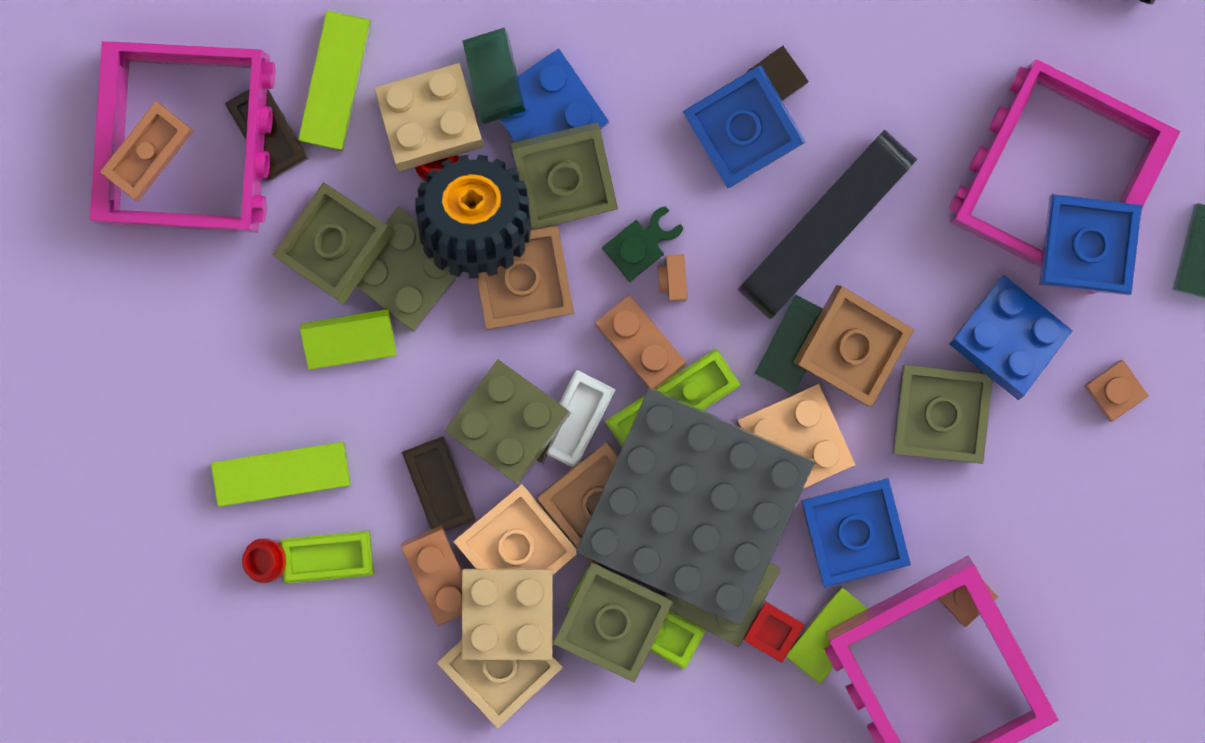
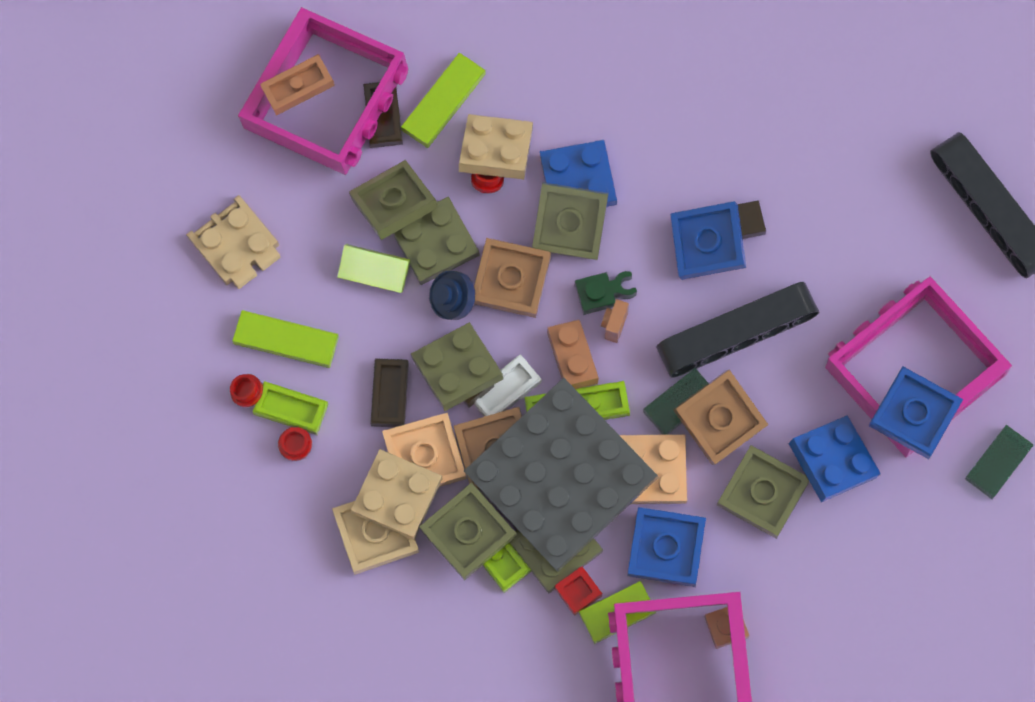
camera: 30 degrees right, 15 degrees down
(163, 379) = (236, 243): none -> tan plate
(353, 599) = (295, 444): none -> red plate
(436, 573) = (360, 448): nougat plate -> none
(461, 333) = (452, 295): none -> dark blue plate
(473, 216) = (495, 218): black wheel -> none
(493, 75) = (552, 138): clear green tile -> none
(1116, 390) = (895, 529): nougat plate -> none

